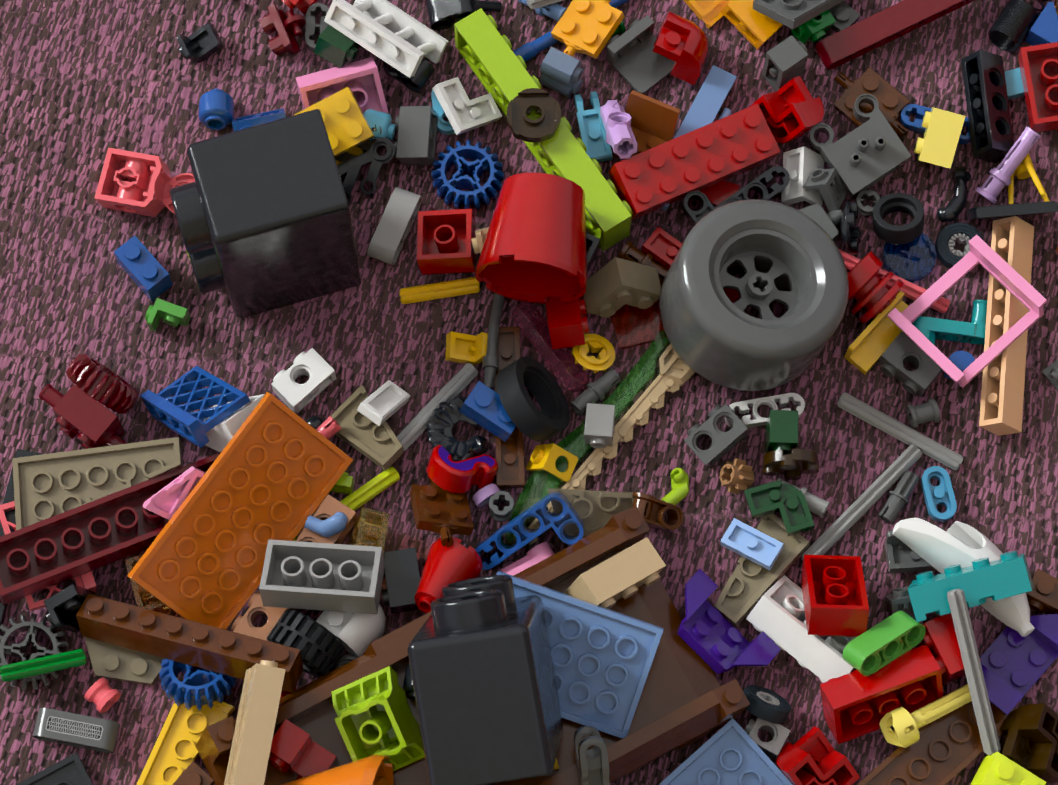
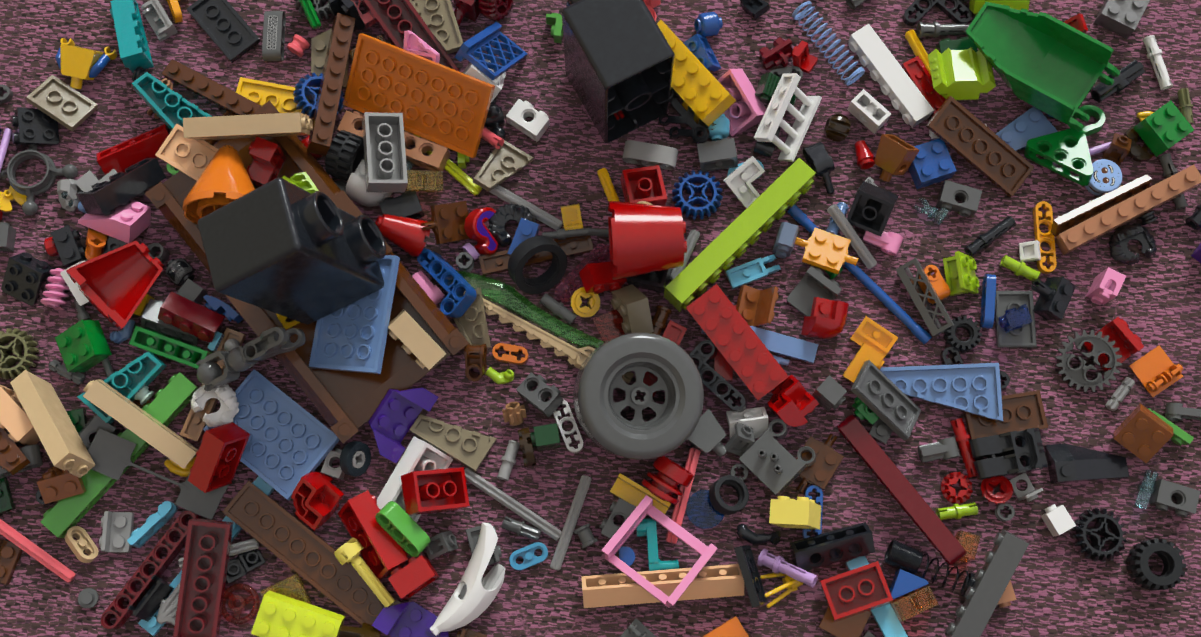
camera: 80 degrees right, 5 degrees up
(328, 527) = (423, 151): medium blue arm -> none
(383, 402) = (521, 172): white tile -> none
(533, 130) = (744, 212): dark brown plate -> none
(545, 457) = (503, 283): yellow bracket -> none
(599, 425) = (530, 313): light grey brick -> none
(618, 129) = (746, 284): lavender piece -> none
(653, 471) = (510, 349): none -> orange beam
(752, 544) = (465, 431): light blue plate -> none
(784, 498) = (501, 448): dark green plate -> none
(850, 233) = (711, 461): black dish -> none
(945, 242) = (730, 542): black bush -> none
(973, 671) = (391, 593): light grey axle -> none
(980, 581) = (451, 581): teal wedge -> none

